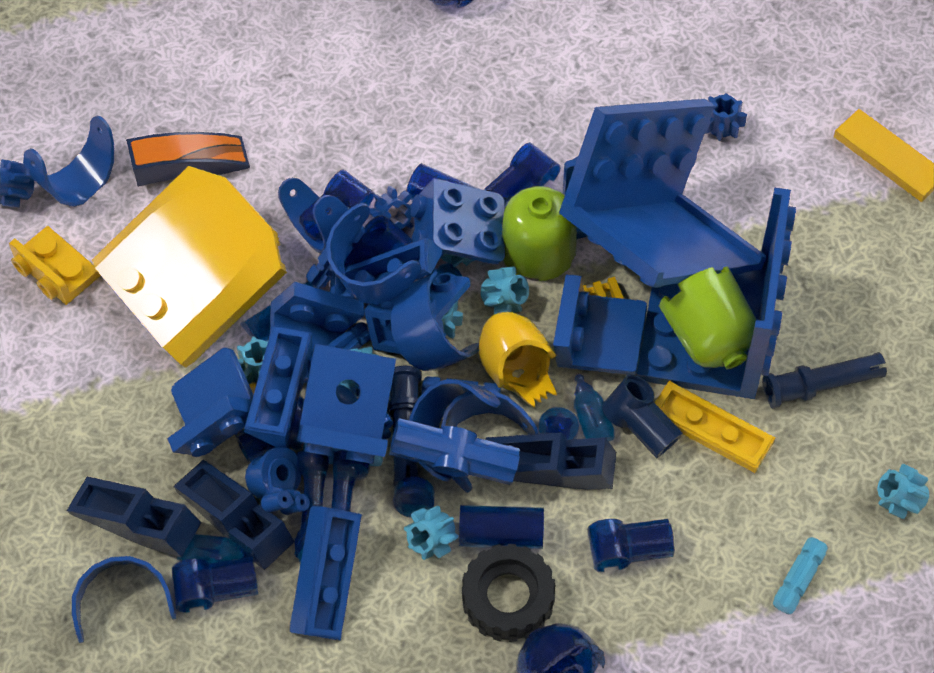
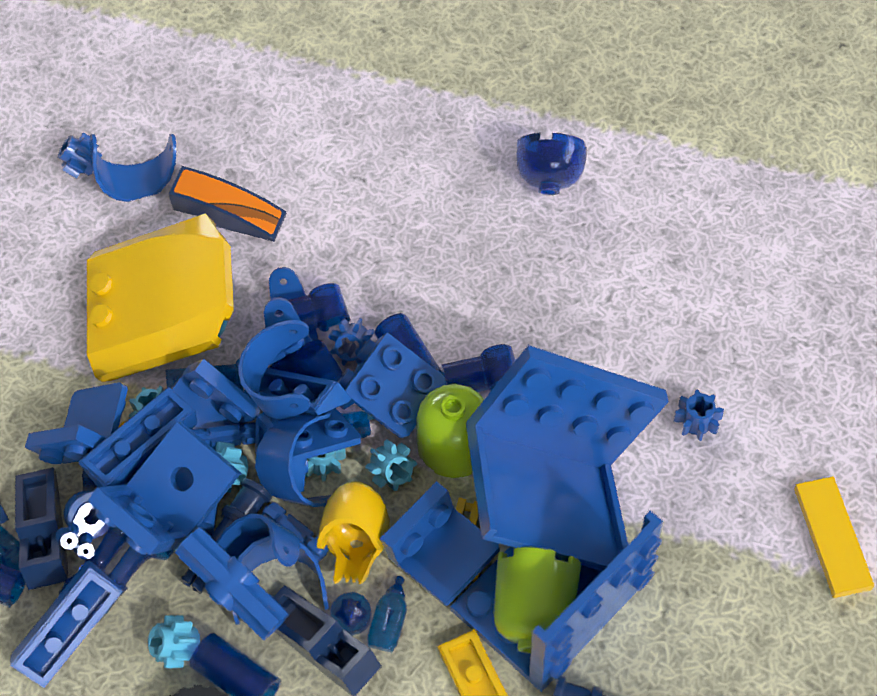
camera: 35 degrees right, 0 degrees up
(55, 264) = (64, 238): yellow bracket -> none
(412, 495) = (186, 600): clear blue tile -> none
(633, 408) = (423, 647): dark blue piece -> none

